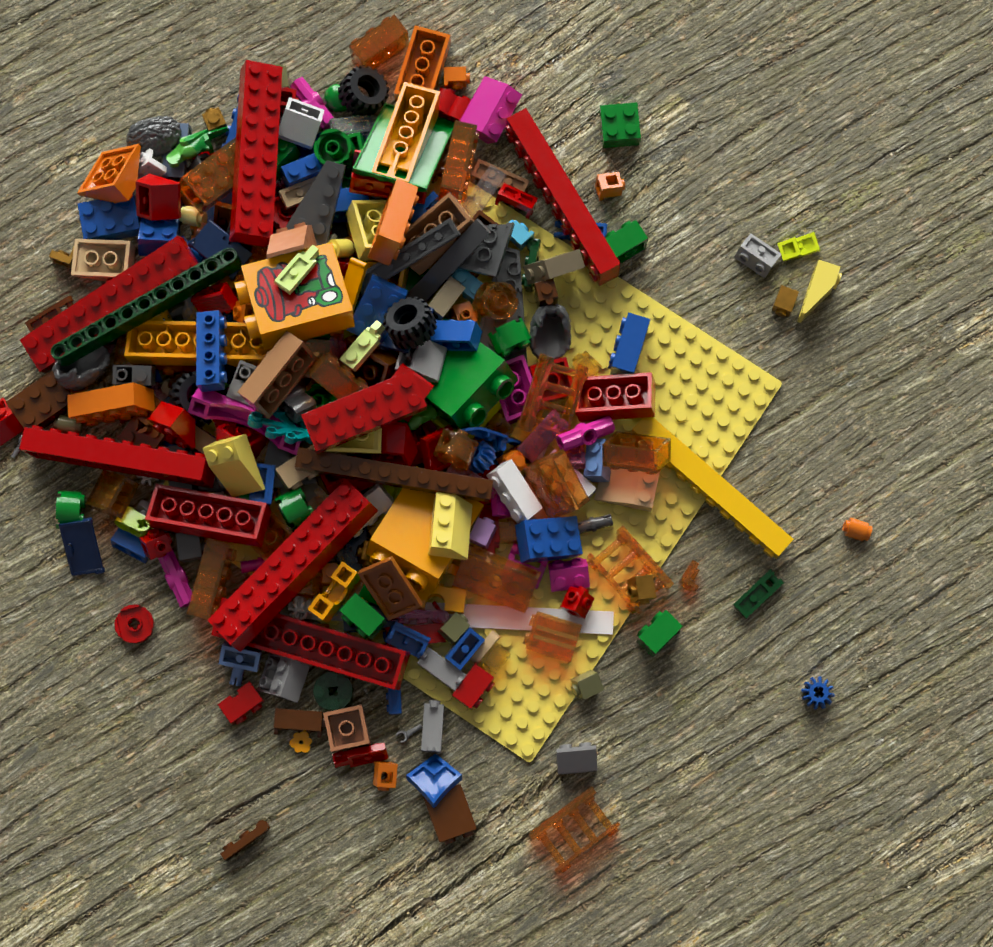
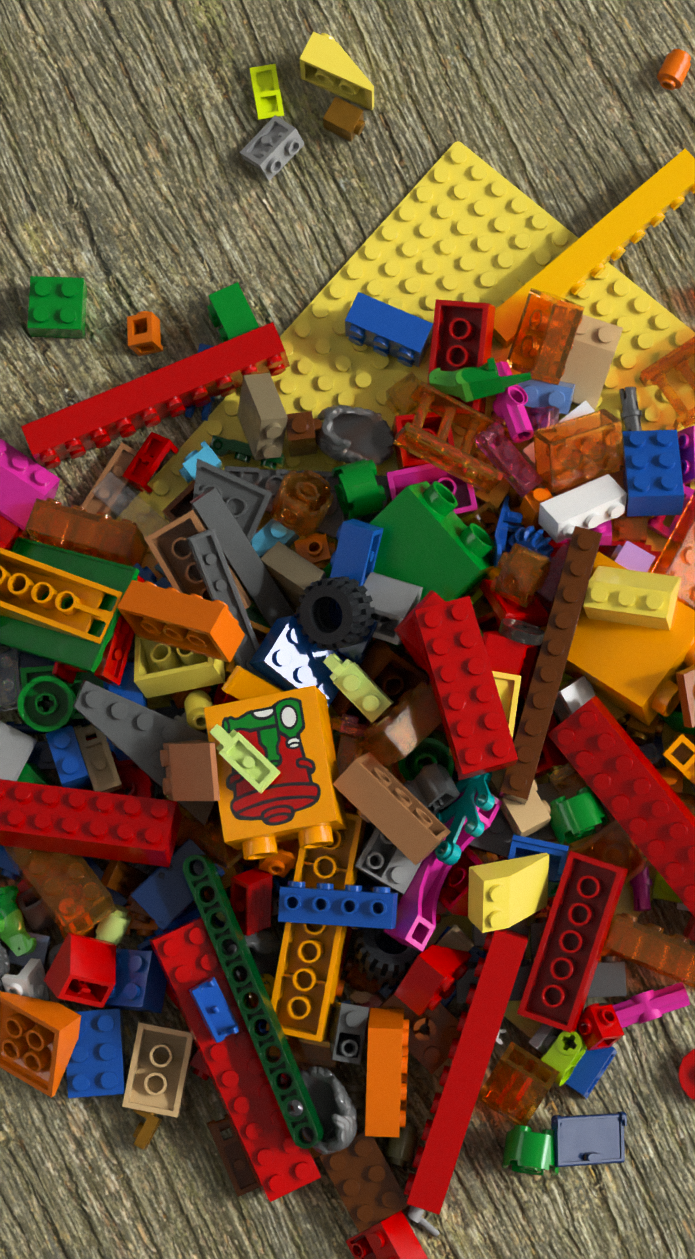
camera: 80 degrees left, 0 degrees up
(136, 281) = (214, 1009): none -> blue hinge
(412, 450) = (521, 631): none -> clear smoke piece
(594, 404) = (474, 382): none -> animal

